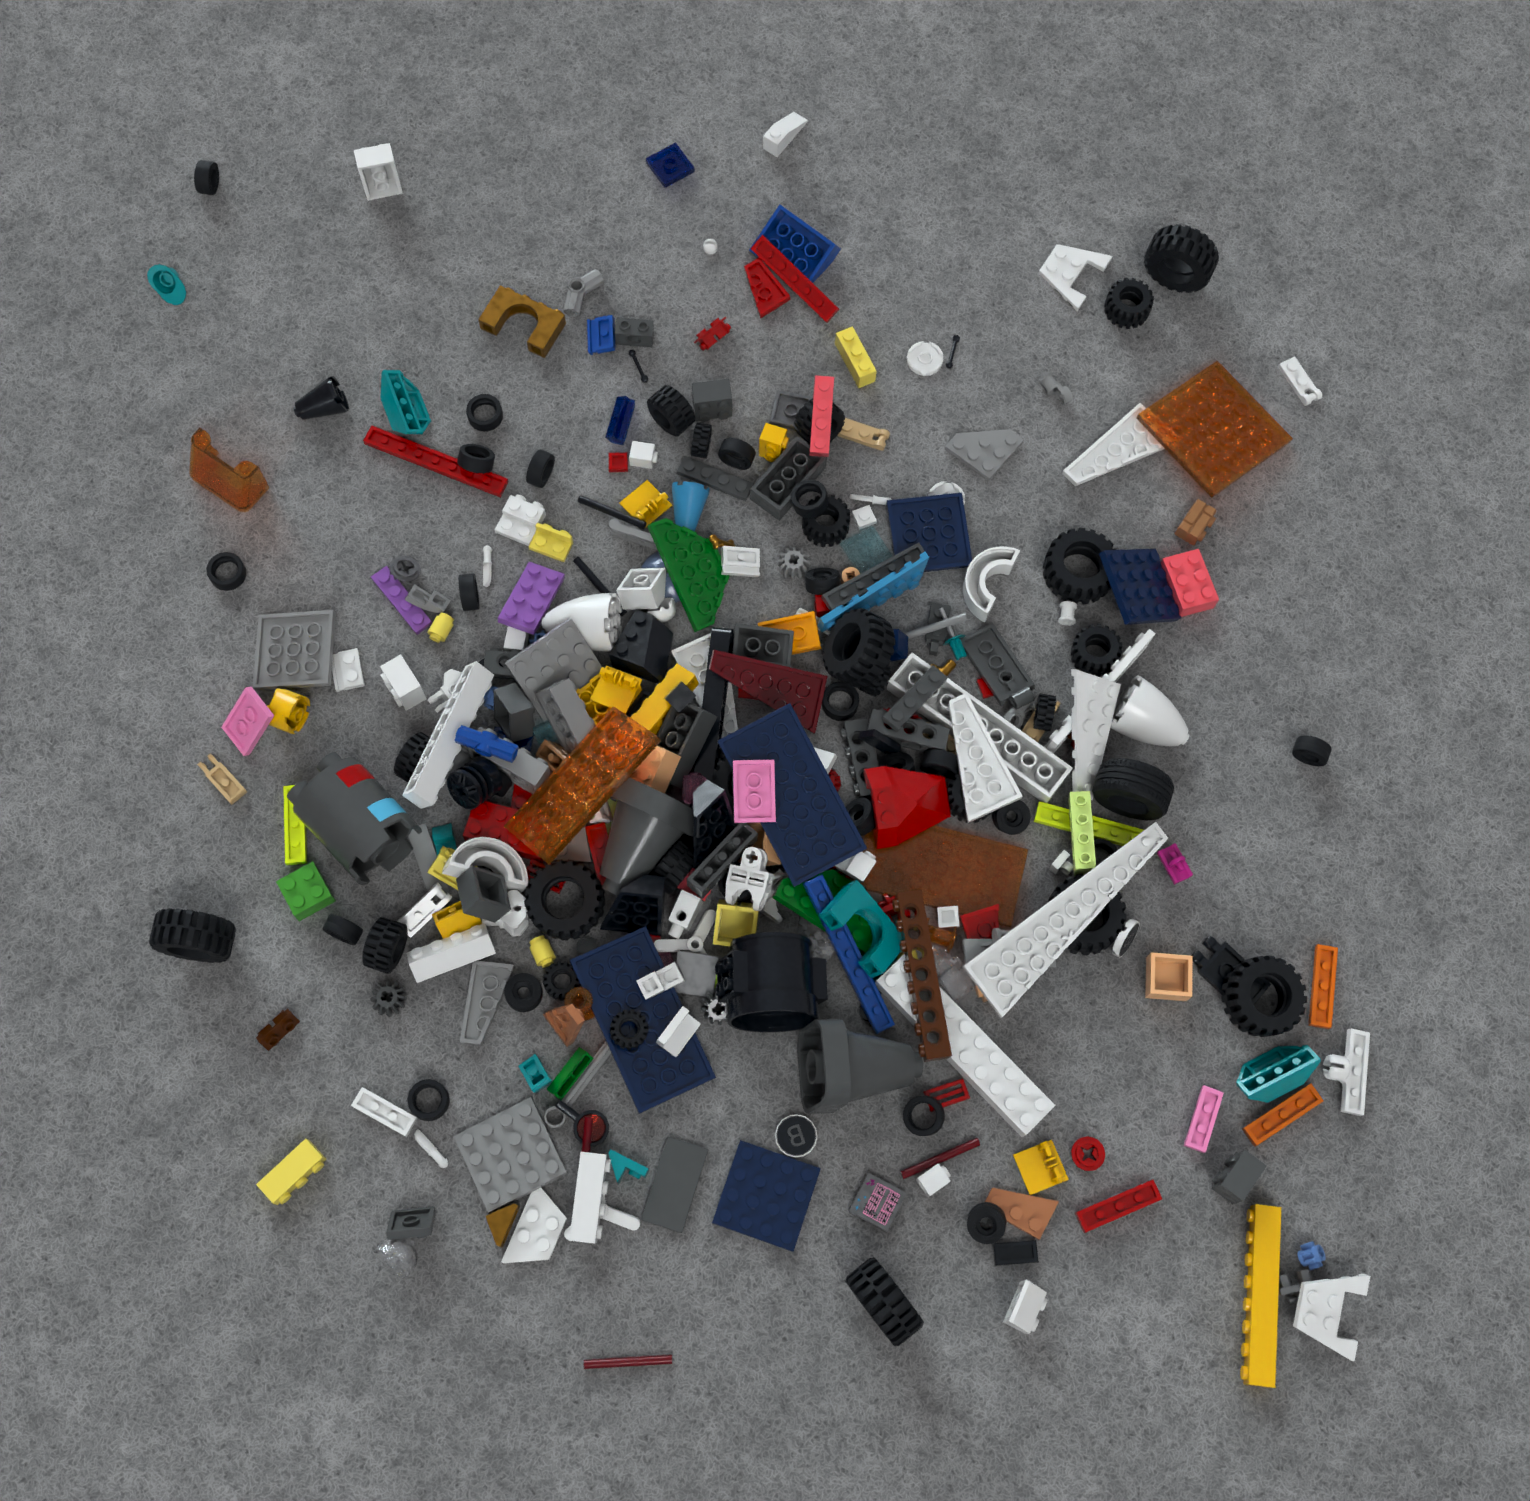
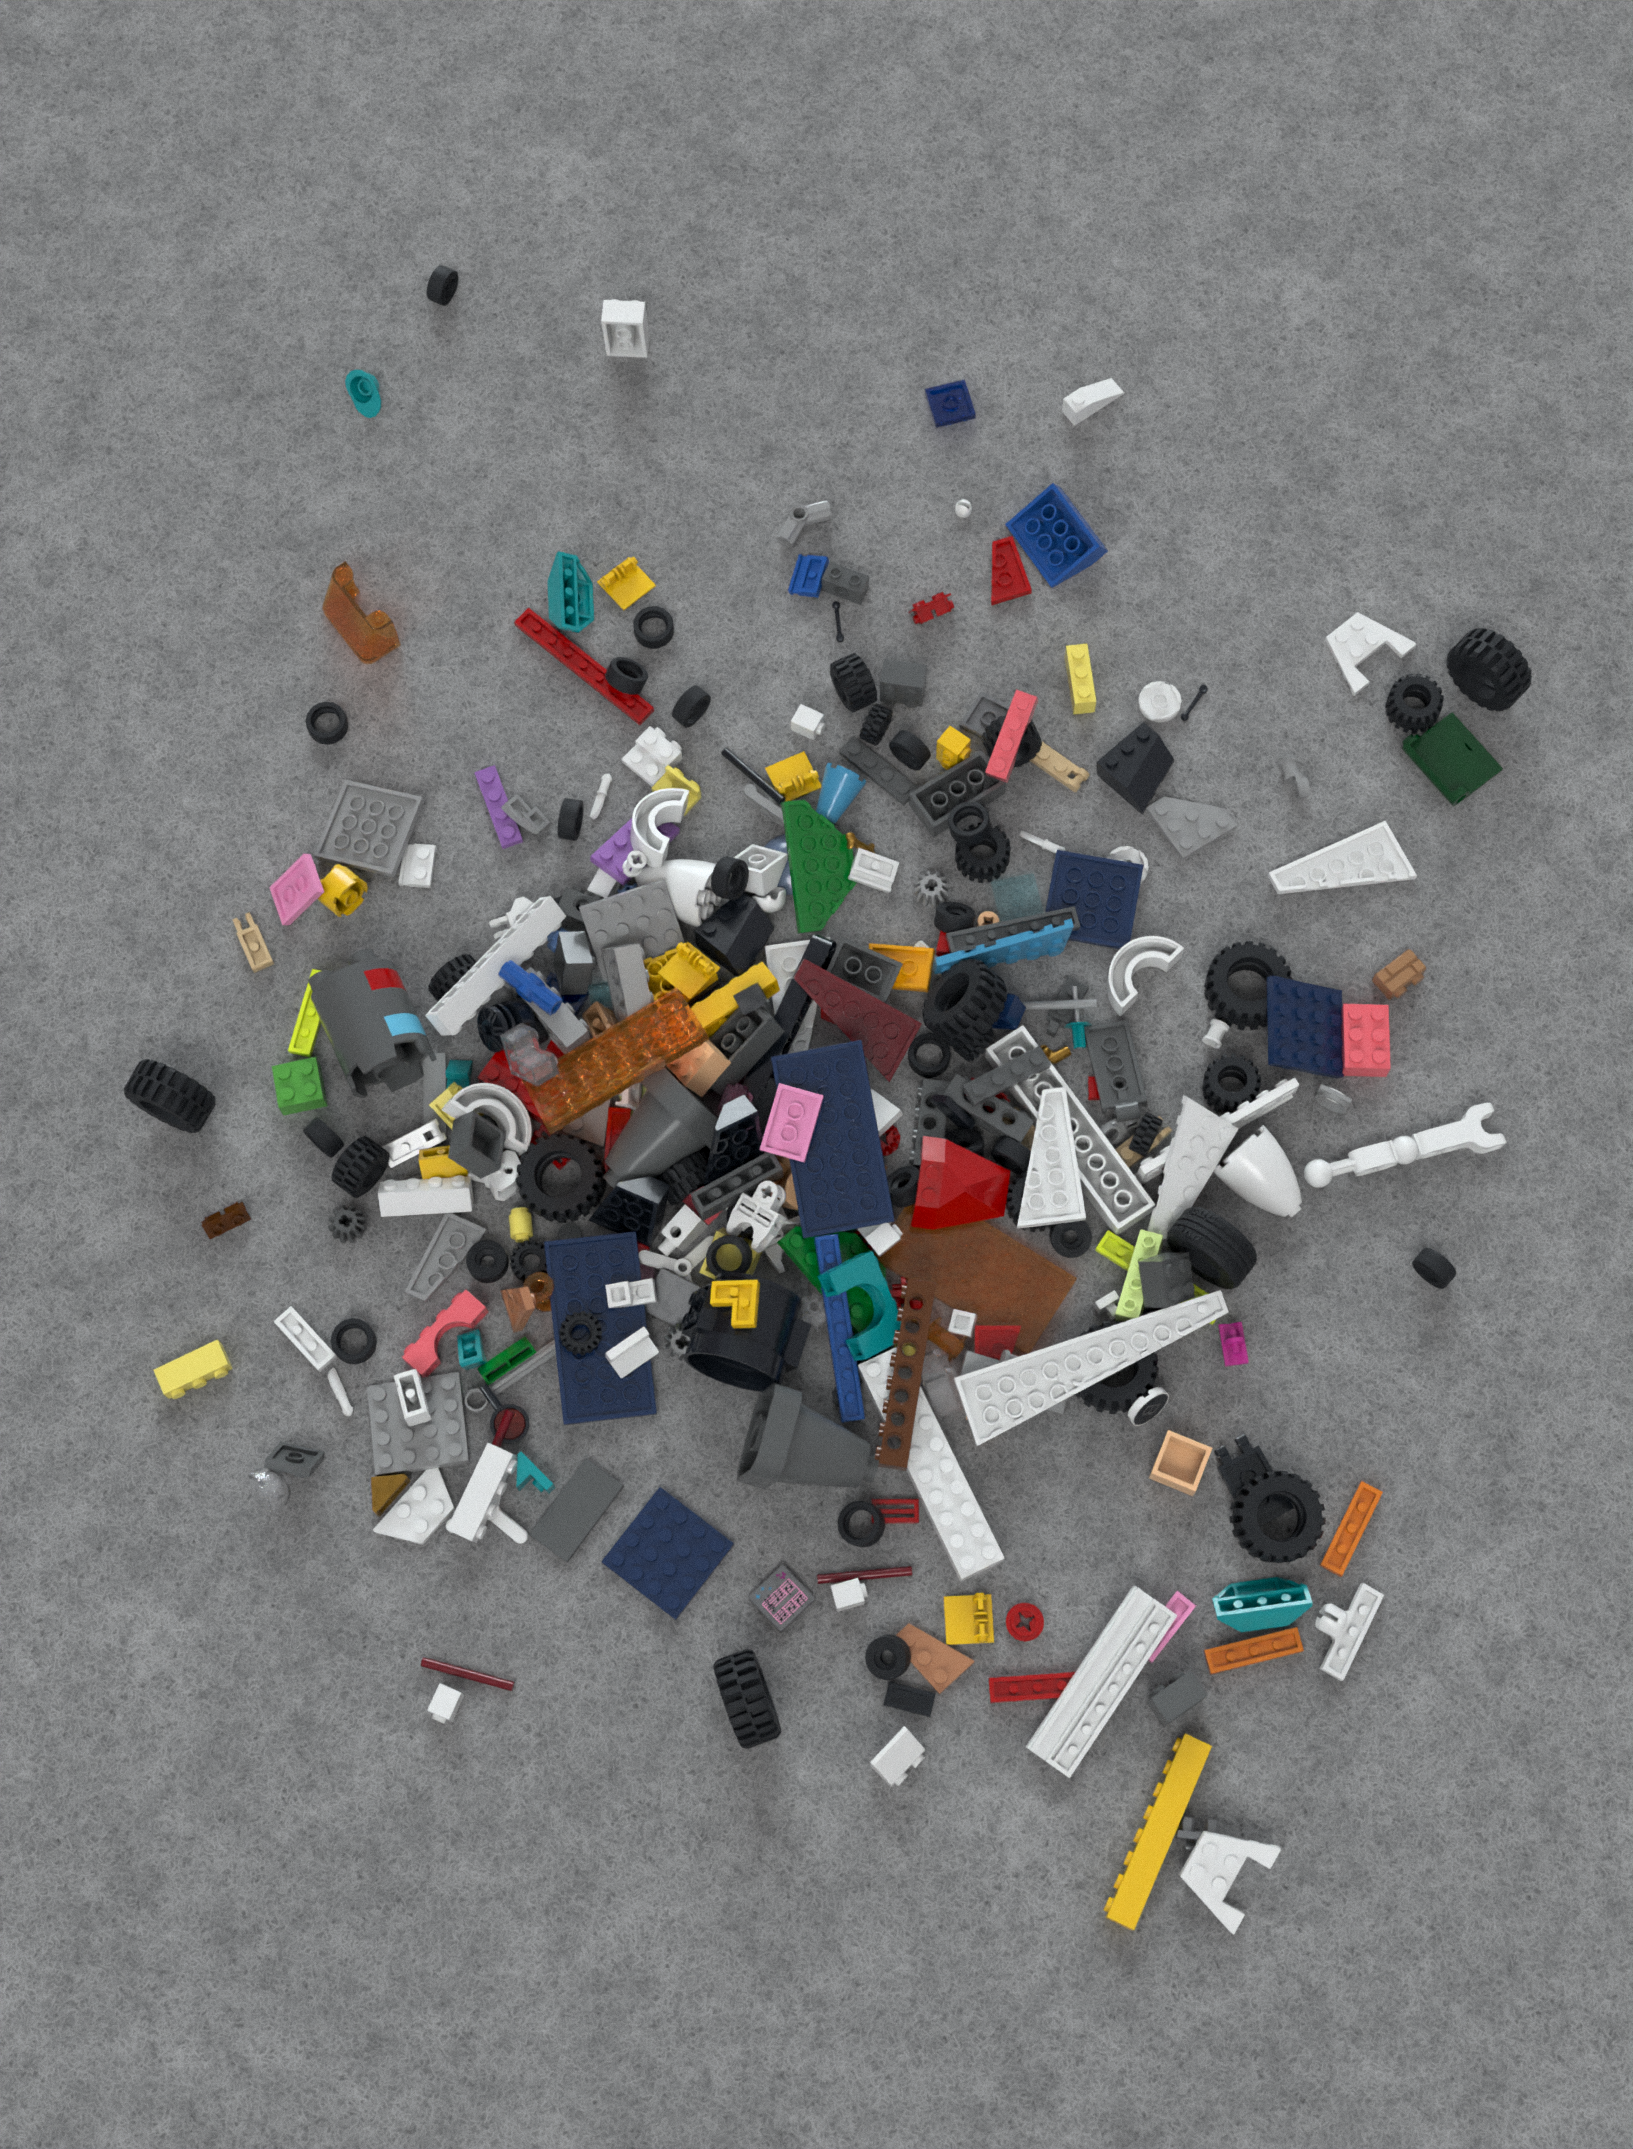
camera: 25 degrees right, 0 degrees up
(322, 401) = (485, 566): black cone -> none
(402, 683) = (468, 896): white piece -> none
(408, 564) = (518, 769): flat silver gear -> none
(440, 627) = (529, 849): light yellow brick -> none
(448, 382) = (626, 583): none -> yellow hinge
(499, 1133) = (412, 1397): none -> white brick
(502, 805) = (526, 1057): none -> clear brick
(508, 303) = (719, 512): pearl gold arch -> none
(518, 1043) = (463, 1311): none -> coral arch
(538, 565) = (652, 811): none -> white brick
(540, 613) = (634, 864): none -> white bush
(592, 577) = (707, 838): black bar -> none
(618, 462) = (779, 722): red tile -> none
(618, 1396) = (445, 1704): none -> white brick
(620, 420) = (797, 677): clear blue piece -> none
(625, 601) = (721, 876): none -> black tyre
(740, 907) = (729, 1239): none -> black tyre
(765, 953) = (742, 1296): none -> yellow plate
(795, 278) = (1043, 571): red plate -> none
(796, 1136) = (720, 1501): black tile -> none
(864, 517) = (1027, 861): white plate -> none
(926, 415) = (1136, 766): none -> black wedge
(1107, 827) = (1166, 1279): none -> dark grey piece
(1171, 1183) = (1101, 1681): none -> white plate
(1173, 339) = (1452, 759): none -> dark green door
(1181, 638) = (1332, 1099): none -> light grey piece
(1214, 428) = (1460, 874): clear orange plate -> none
(1252, 662) = (1406, 1149): none -> white piece
(1299, 381) = (1582, 848): white plate -> none
(1311, 1255) = (1227, 1808): medium blue gear -> none

